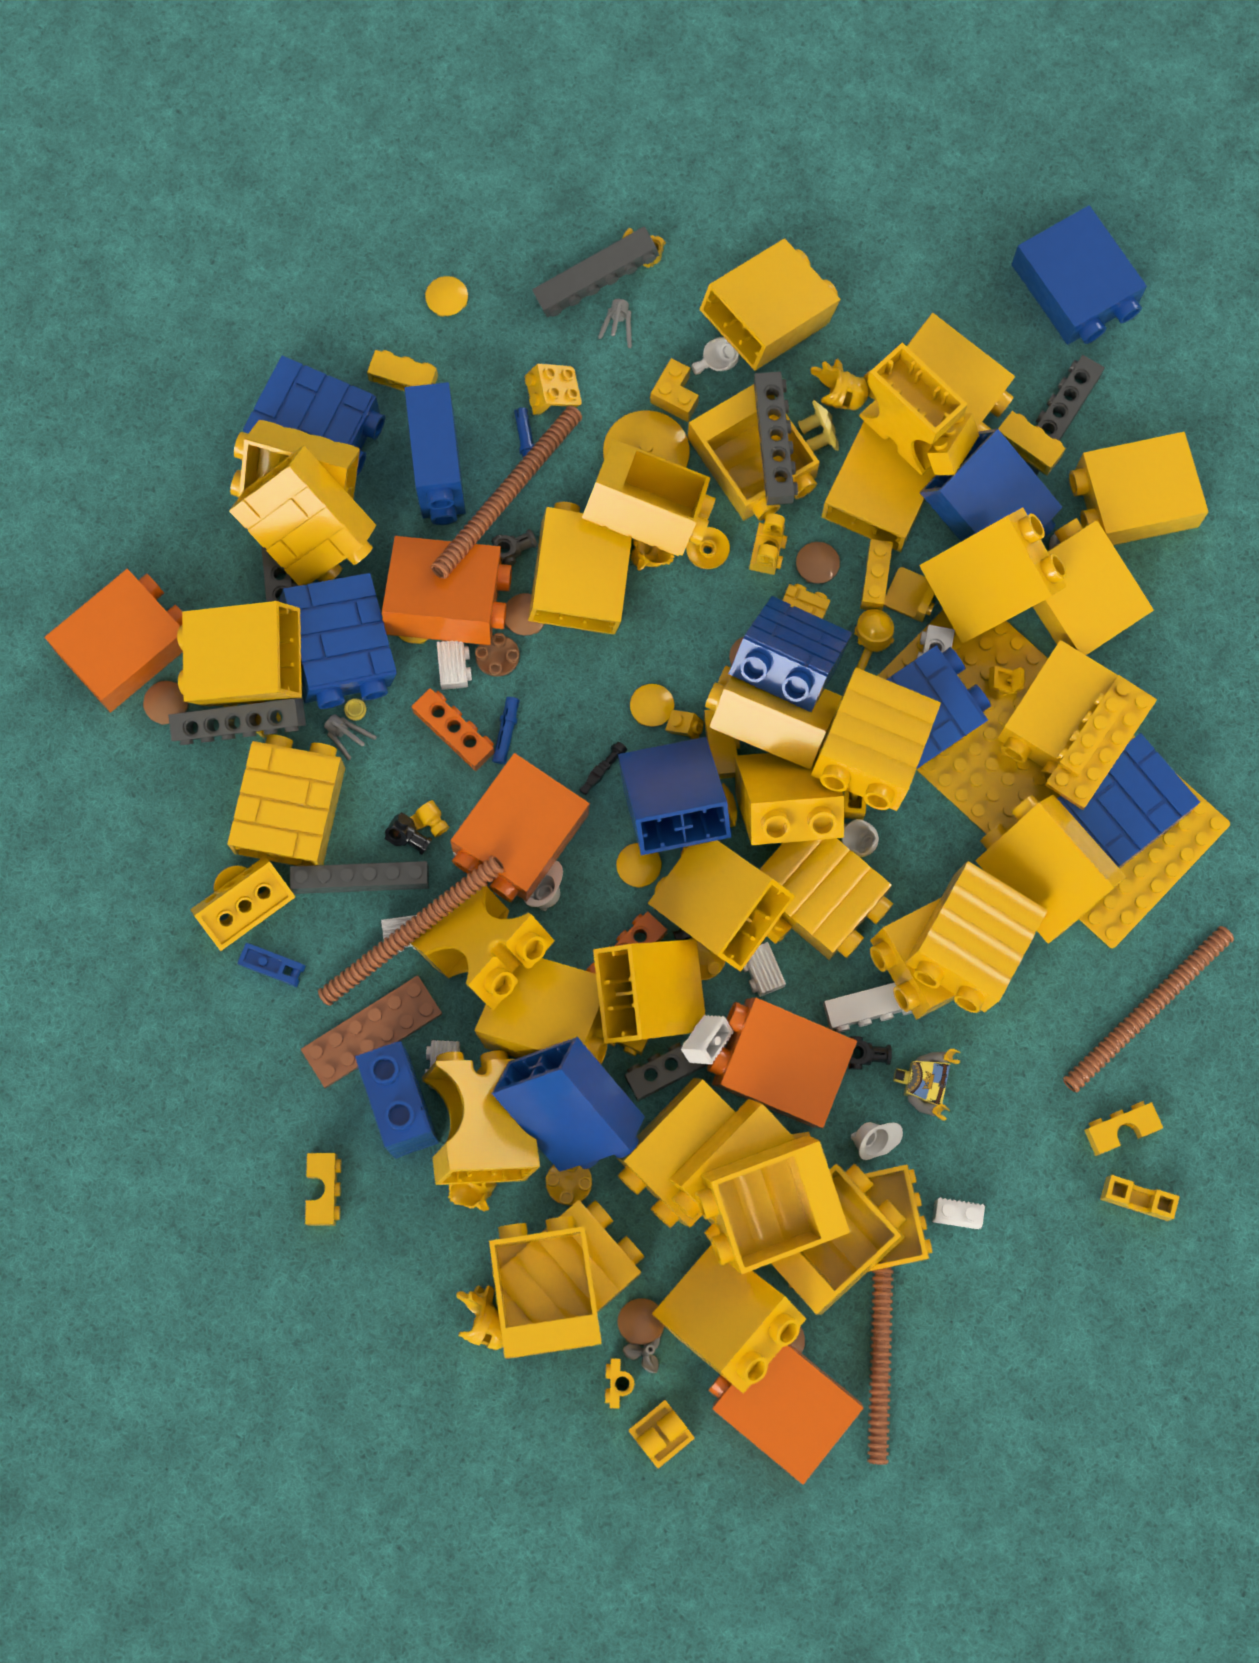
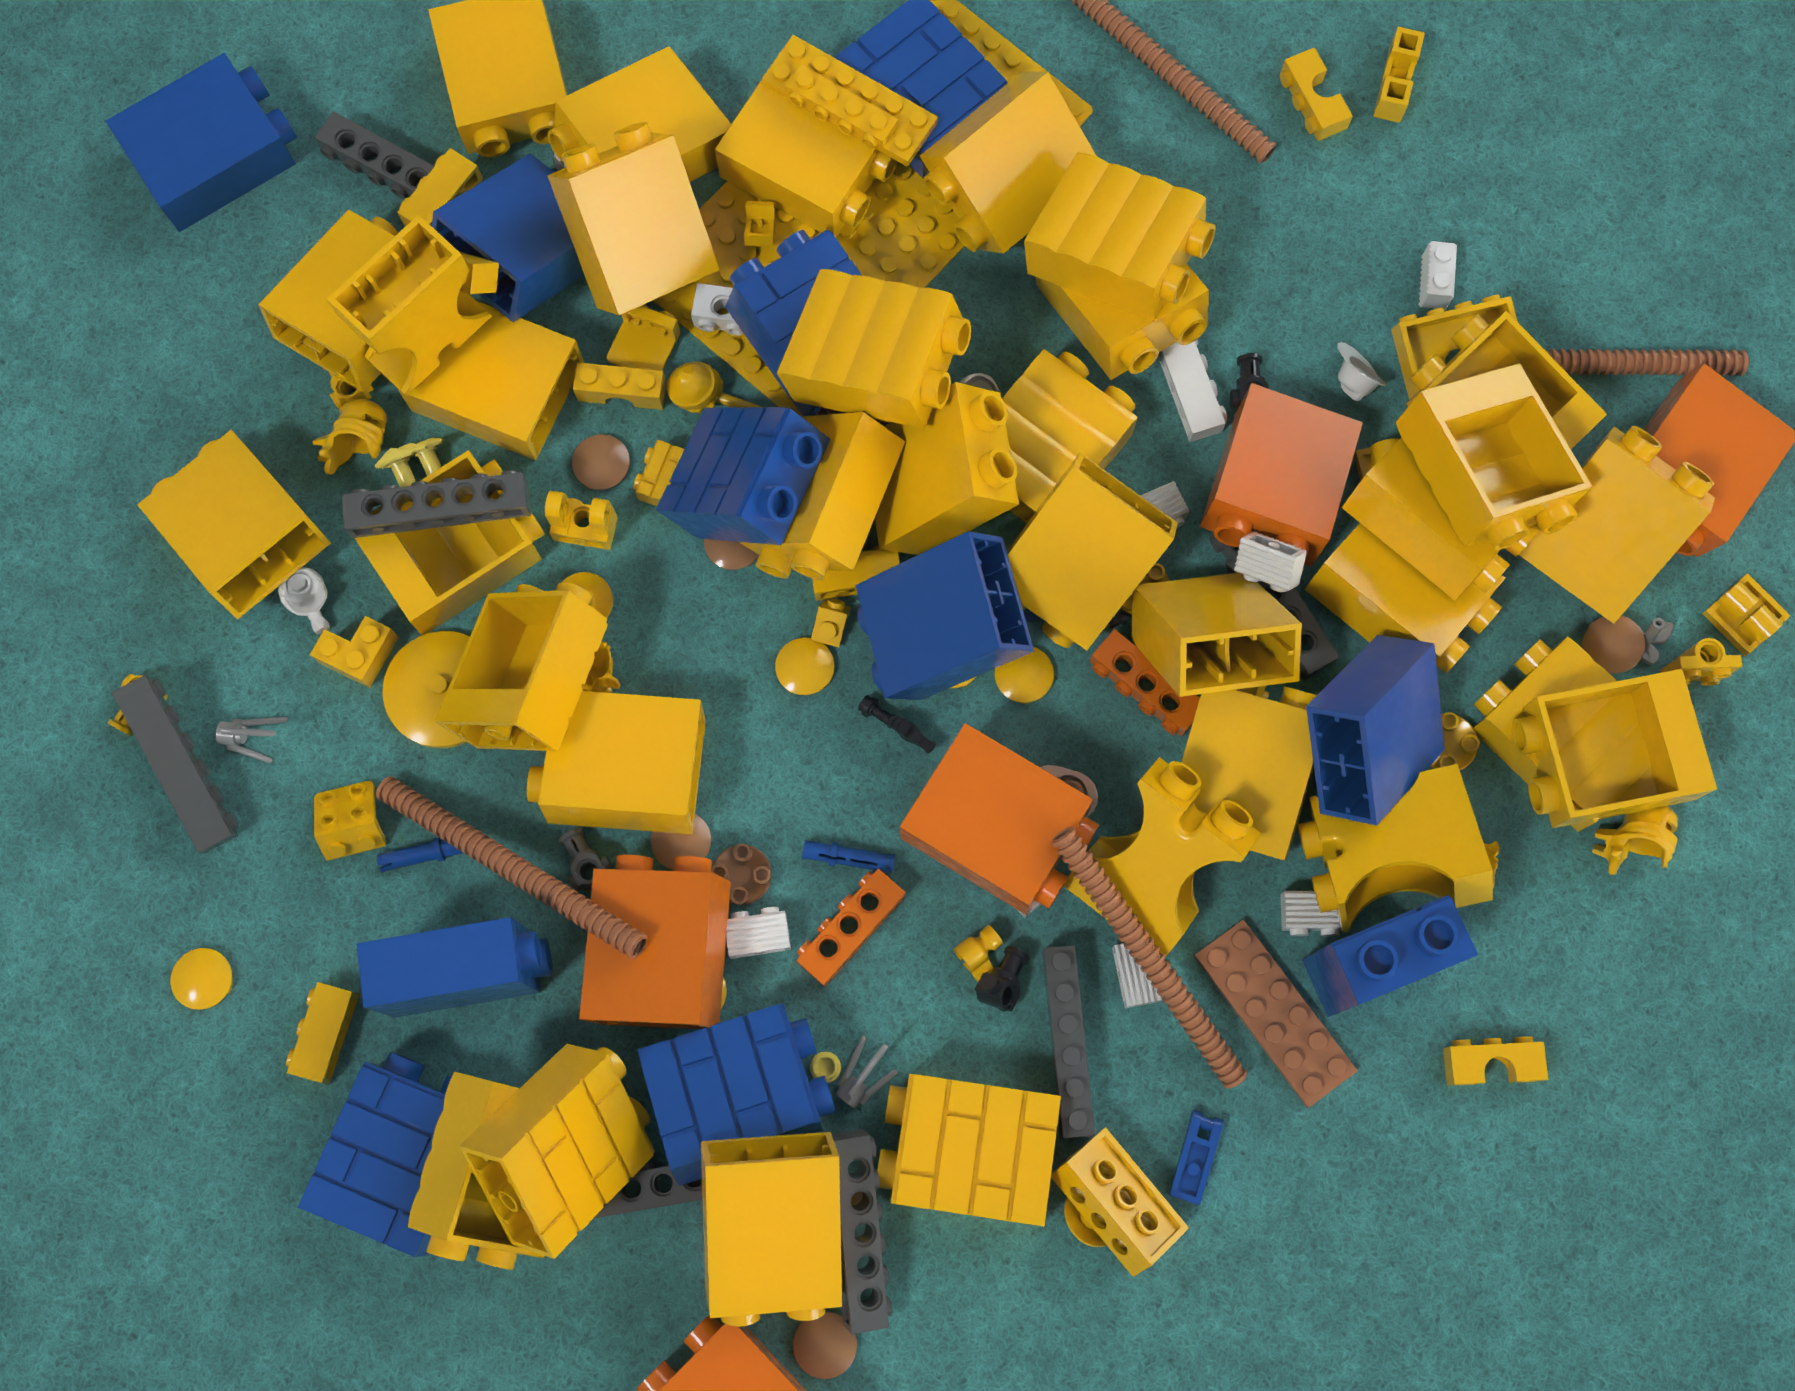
camera: 90 degrees left, 0 degrees up
(927, 1081) = (1280, 313): torso -> none

